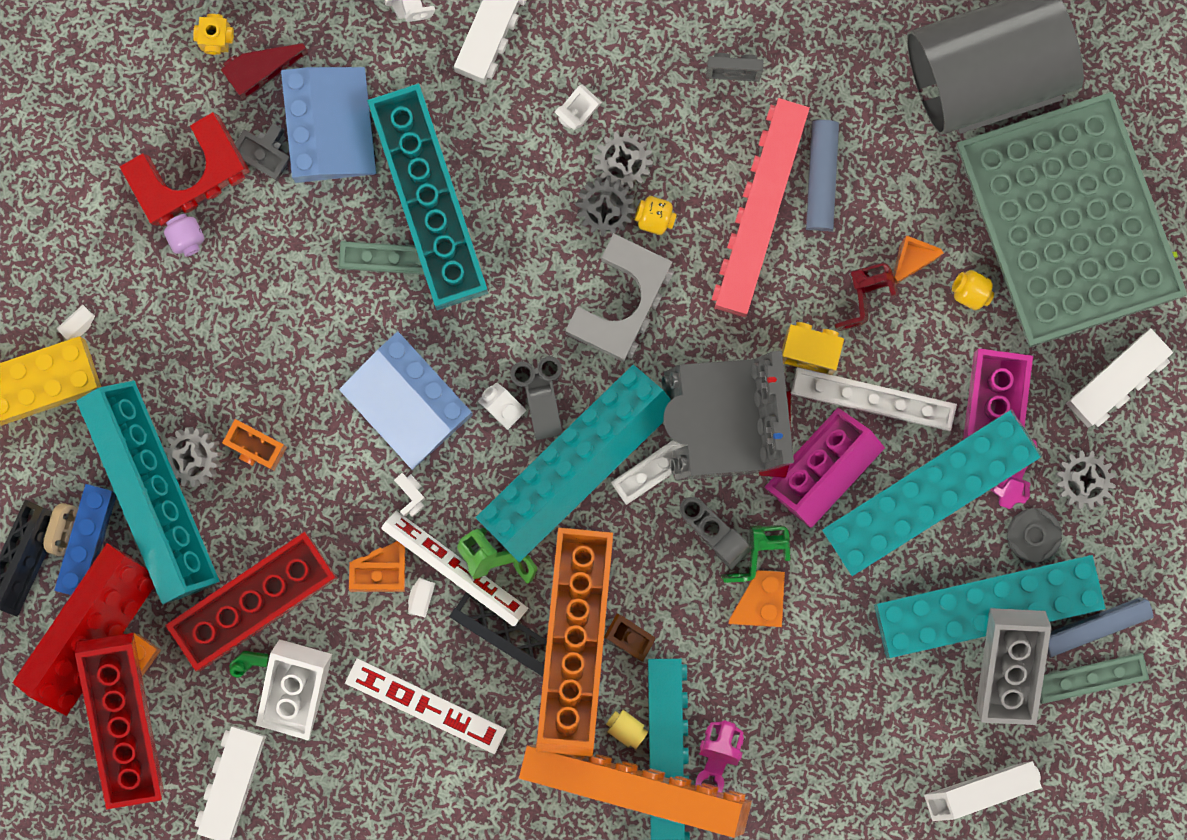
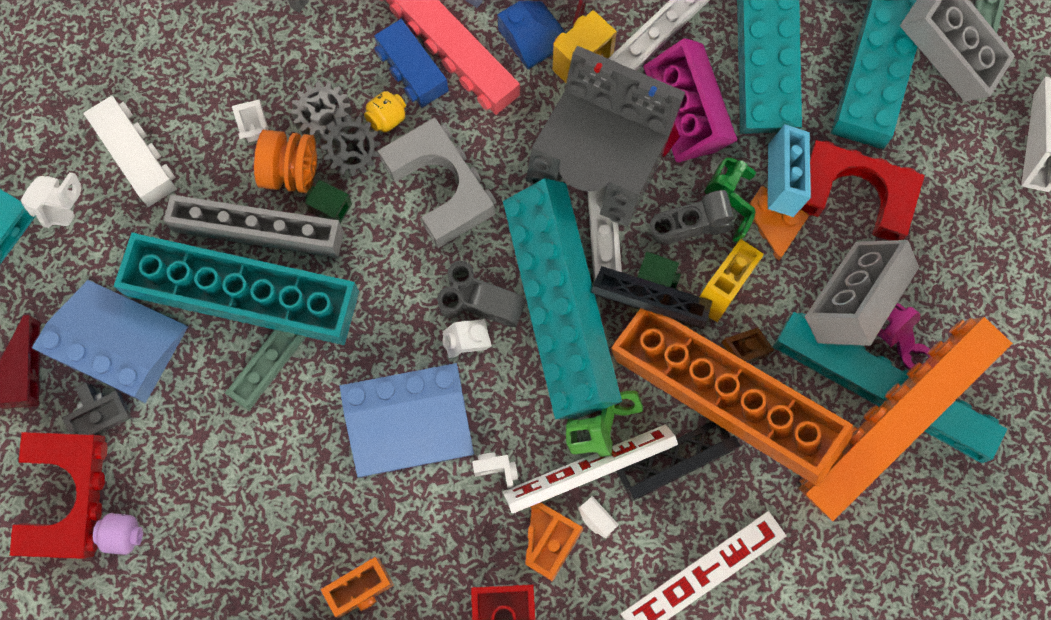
camera: 55 degrees left, 10 degrees down
(487, 174) = (254, 226): none -> light grey brick
(546, 219) = (327, 201): none -> dark green brick
(559, 169) = (285, 161): none -> orange wheel
(621, 536) = (652, 297): none -> black fence
(626, 729) = (833, 397): light yellow brick -> none
(650, 529) = (659, 270): none -> dark green brick
(681, 591) = (730, 278): none -> yellow slope
(712, 207) = (410, 63): none -> blue brick
(726, 704) = (862, 292): none -> light grey brick
(804, 586) = (789, 170): none -> medium azure brick
(810, 294) = (529, 31): none -> blue slope
(851, 687) = (895, 185): none -> red arch

